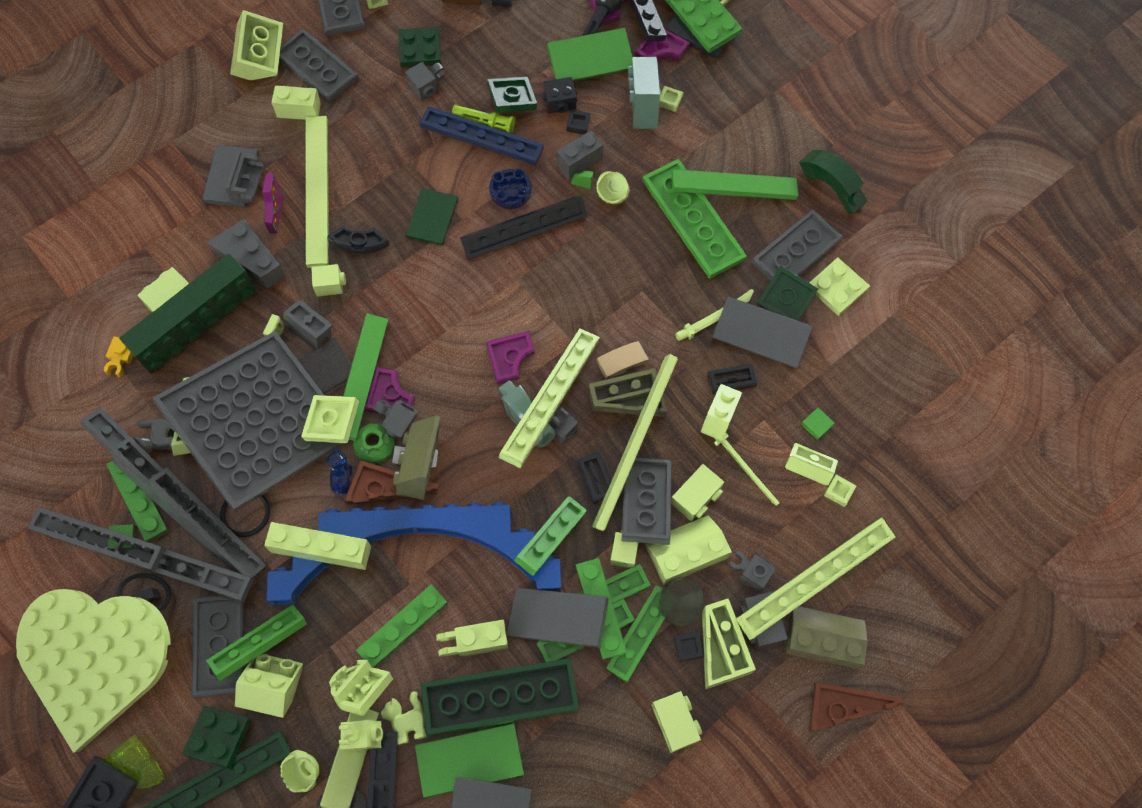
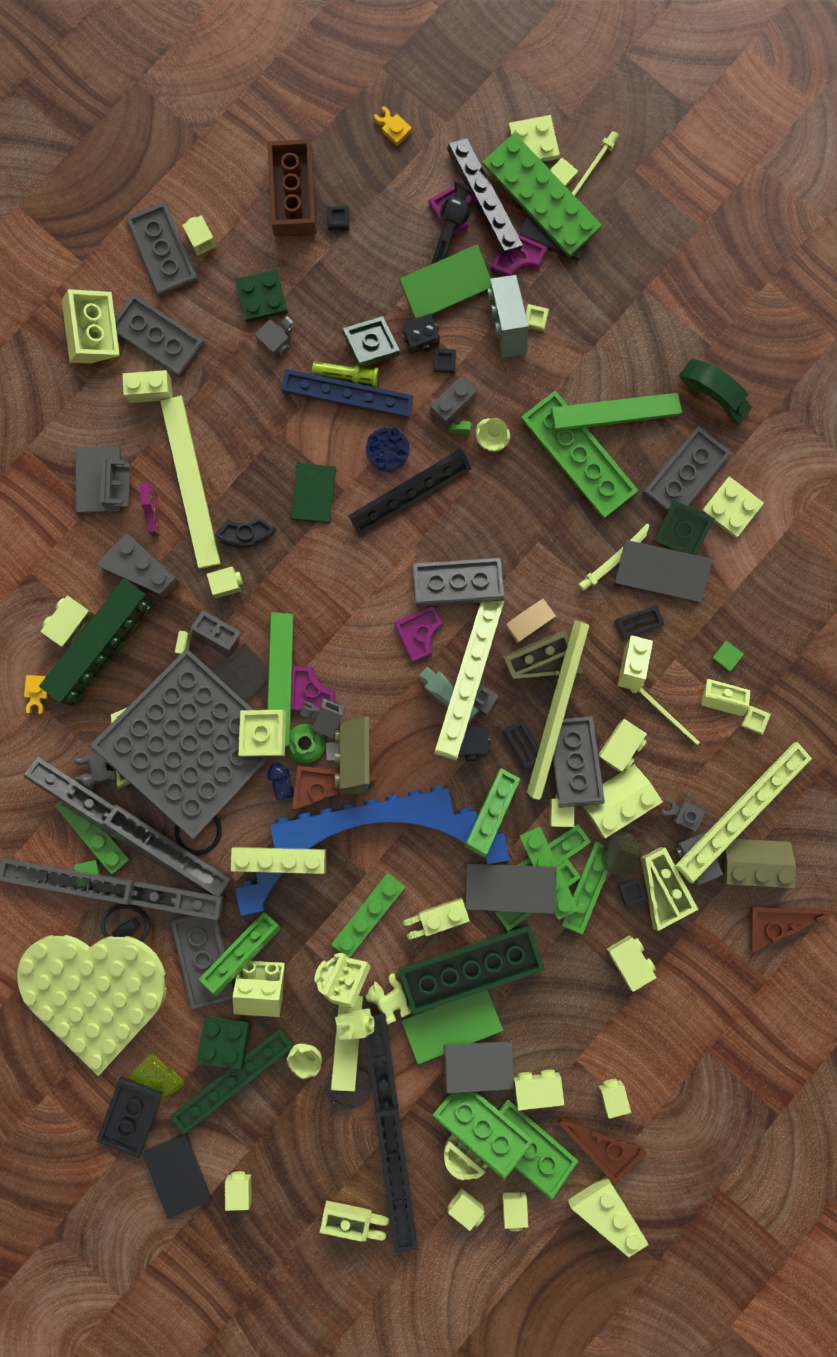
camera: 10 degrees left, 15 degrees up
(542, 466) = (475, 743): none -> black head
(556, 313) = (458, 582): none -> tile

